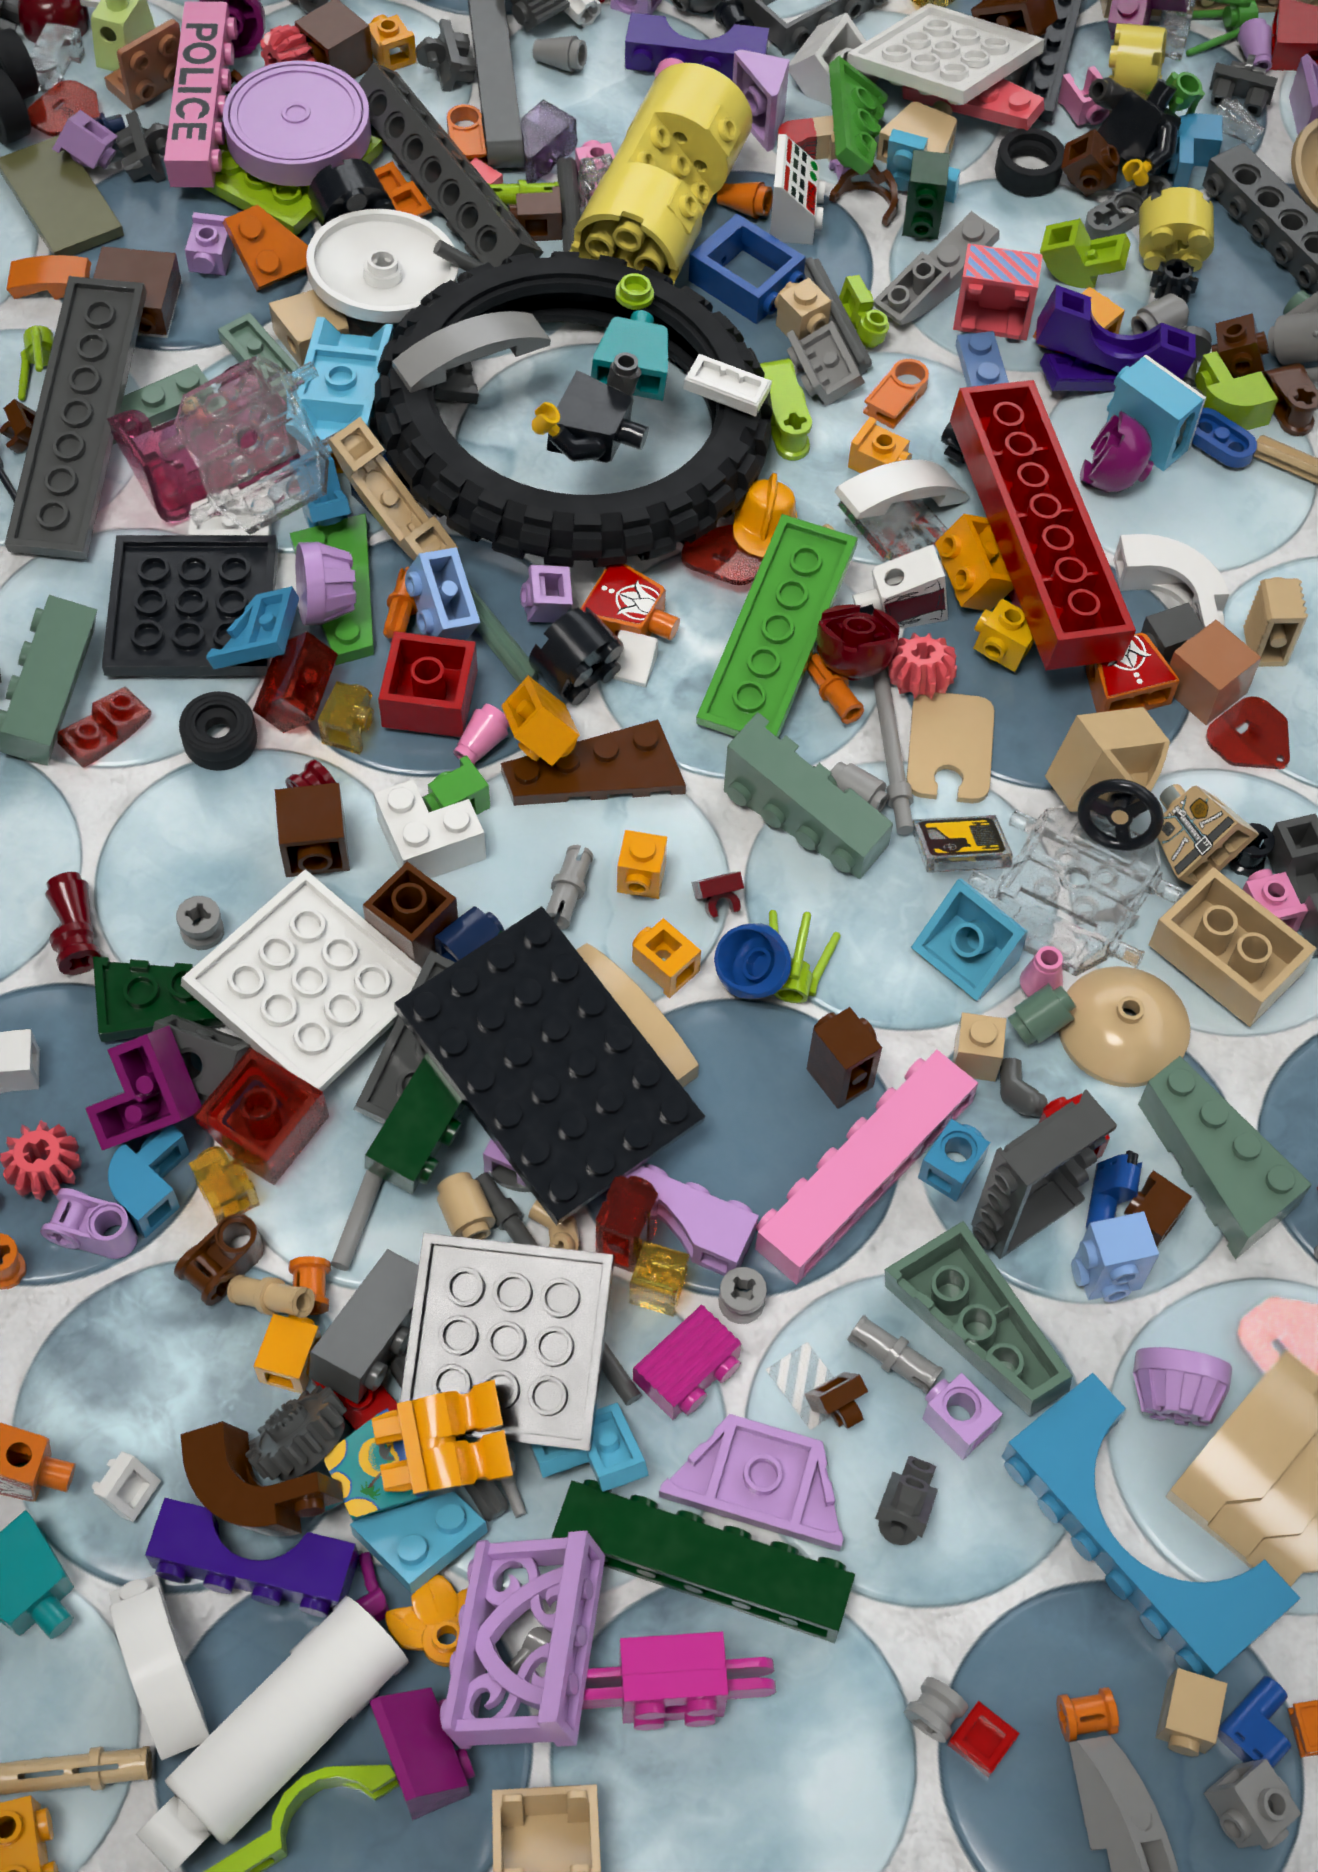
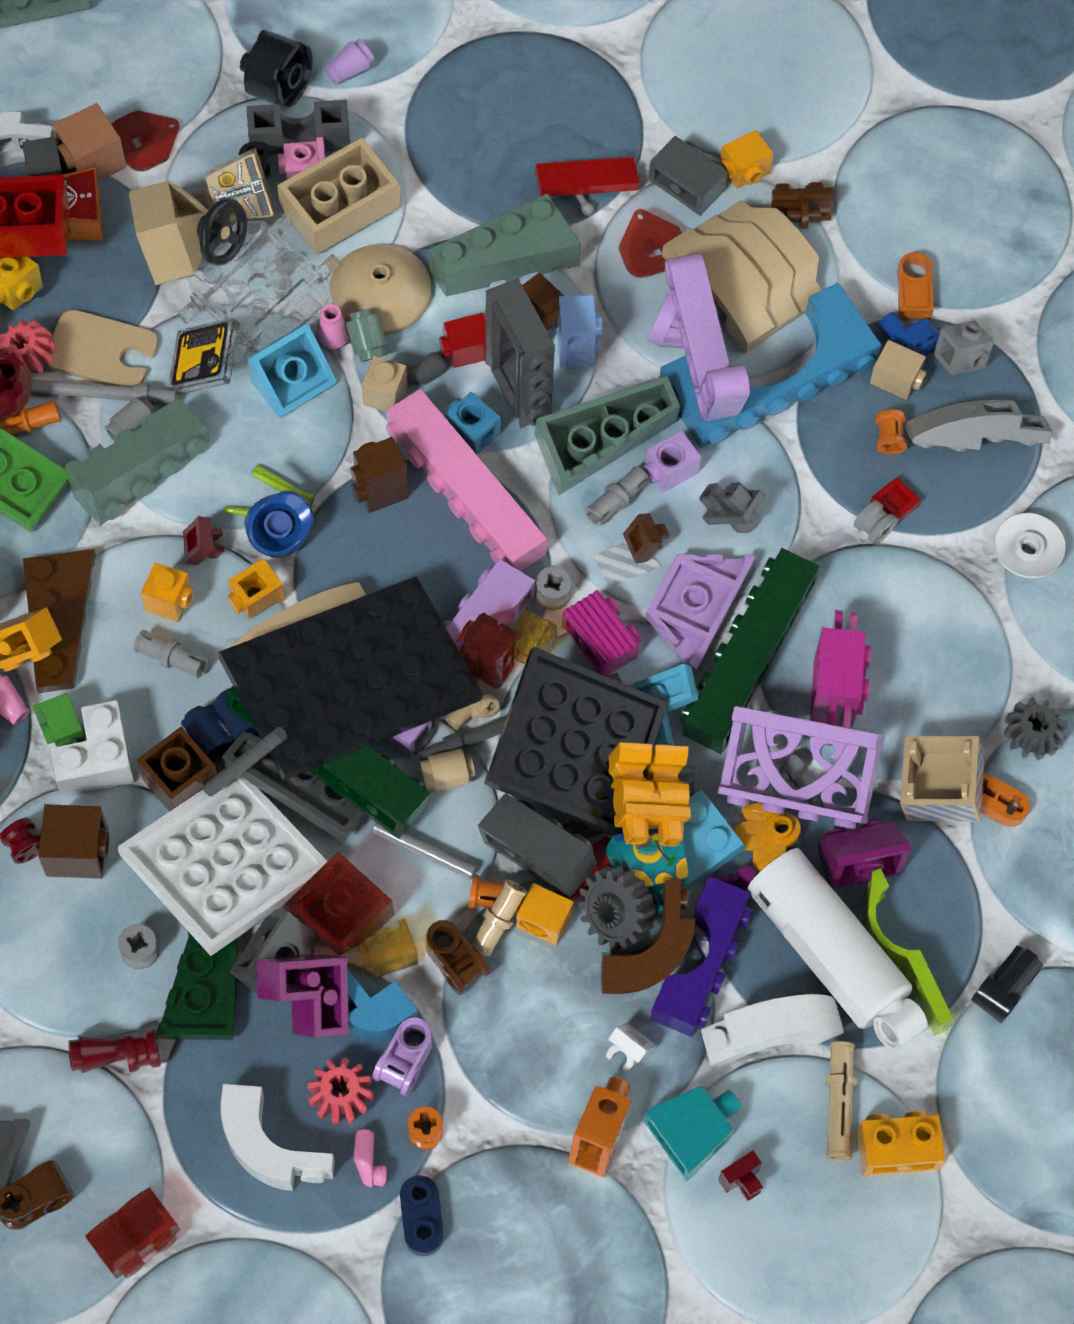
camera: 80 degrees left, 5 degrees up
(414, 966) = (245, 761): none -> dark grey bar
(1131, 1408) = (717, 385): none -> lavender beam
(1275, 620) = (55, 86): tan brick -> none

